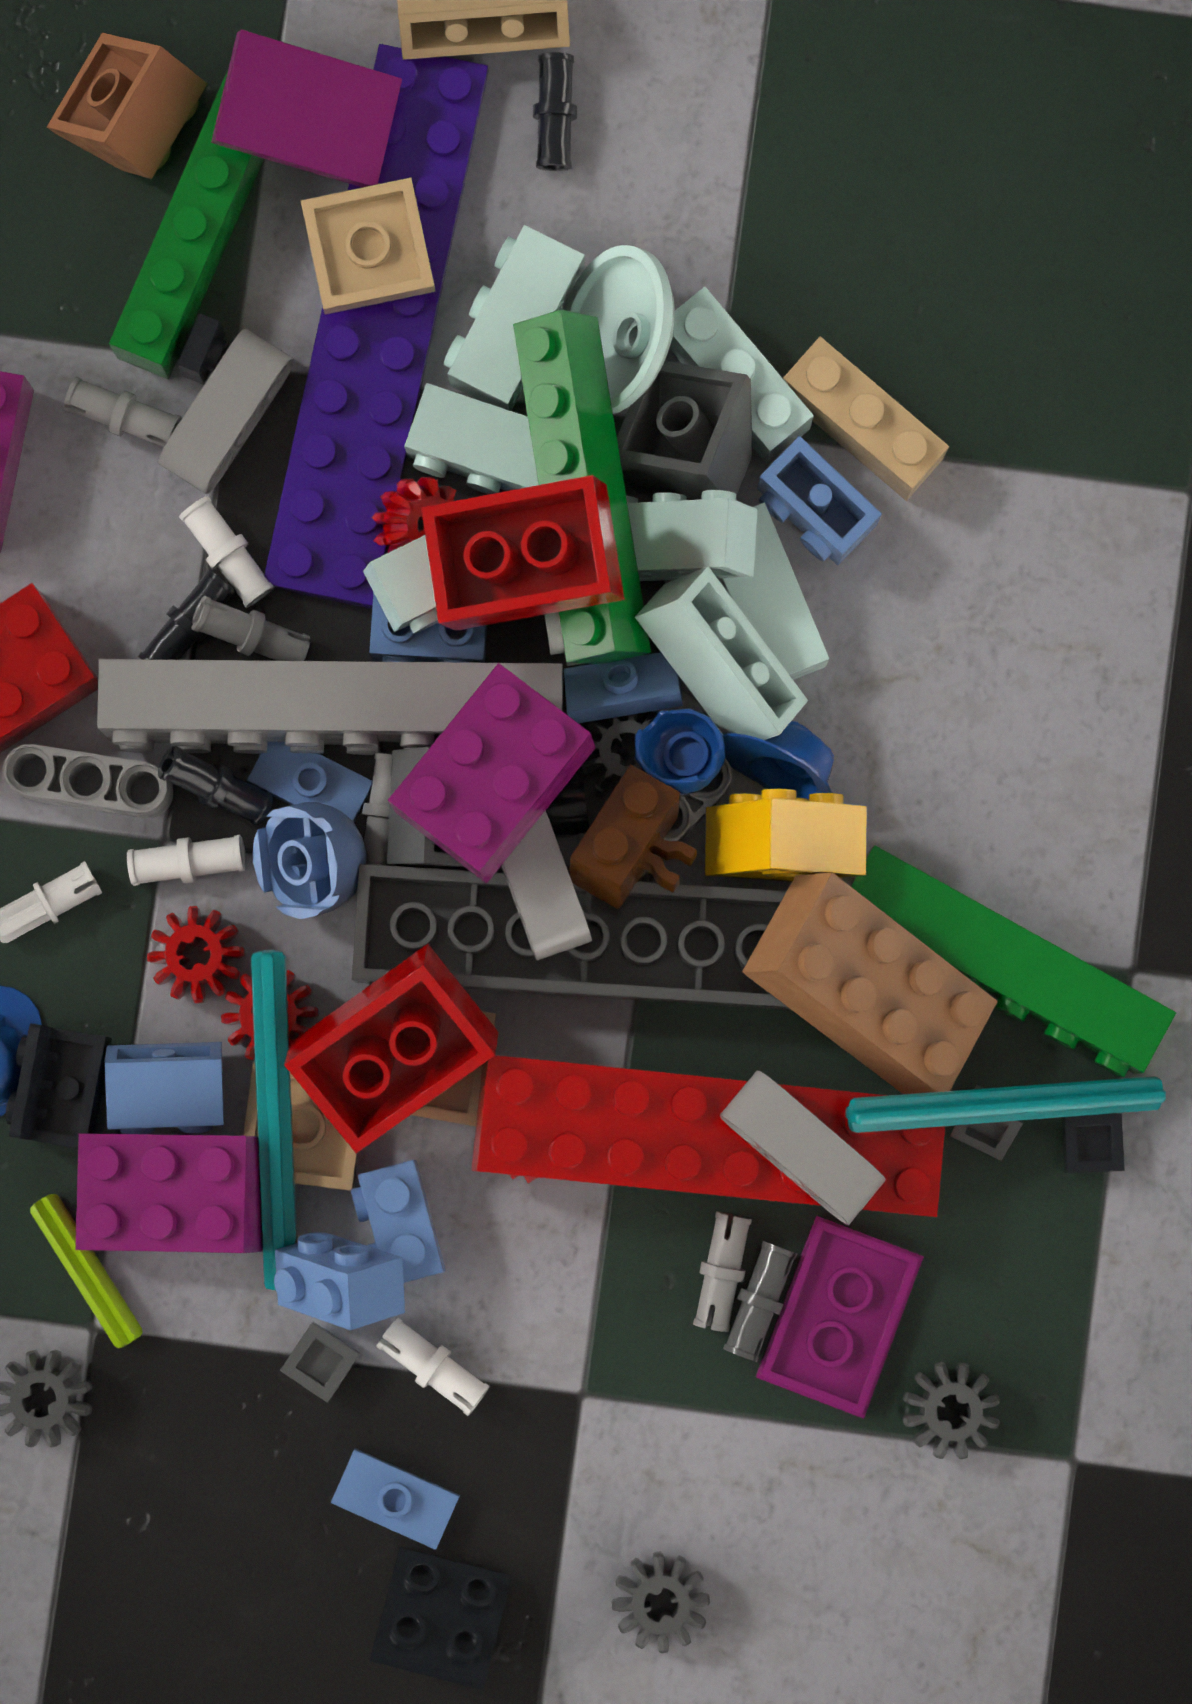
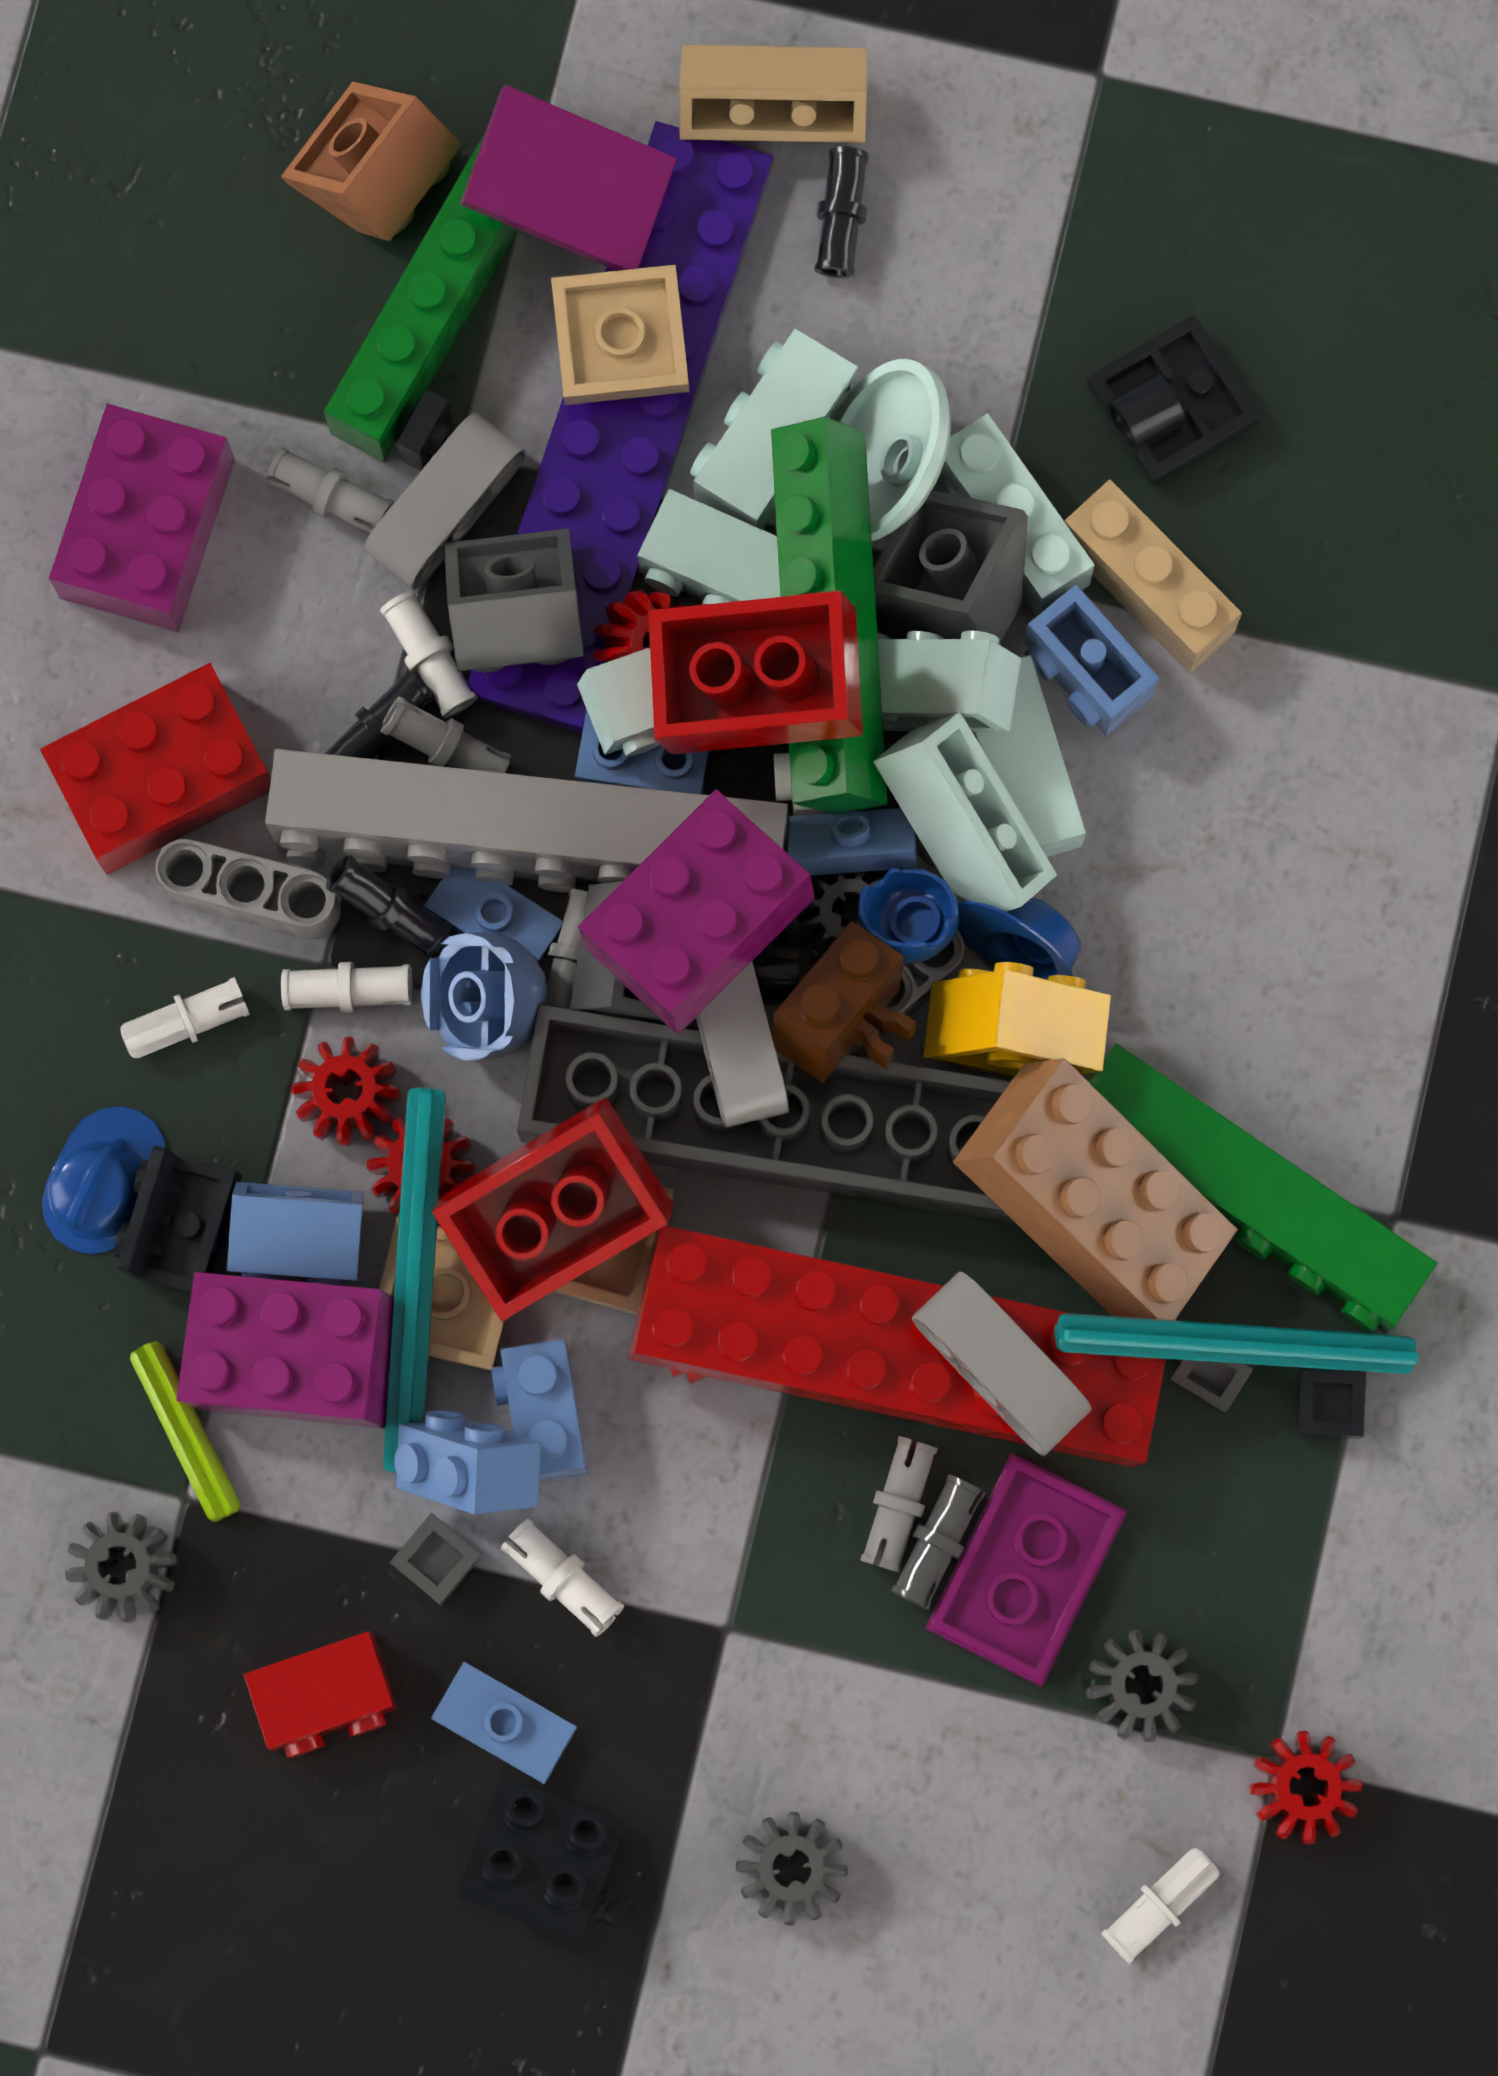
camera: 10 degrees right, 5 degrees down
(231, 1492) = (321, 1694): none -> red brick
(297, 498) = (513, 600): none -> dark grey slope
(868, 255) = (1173, 400): none -> black plate
(986, 1598) = (1161, 1904): none -> white axle
(1112, 1466) = (1318, 1770): none -> red gear

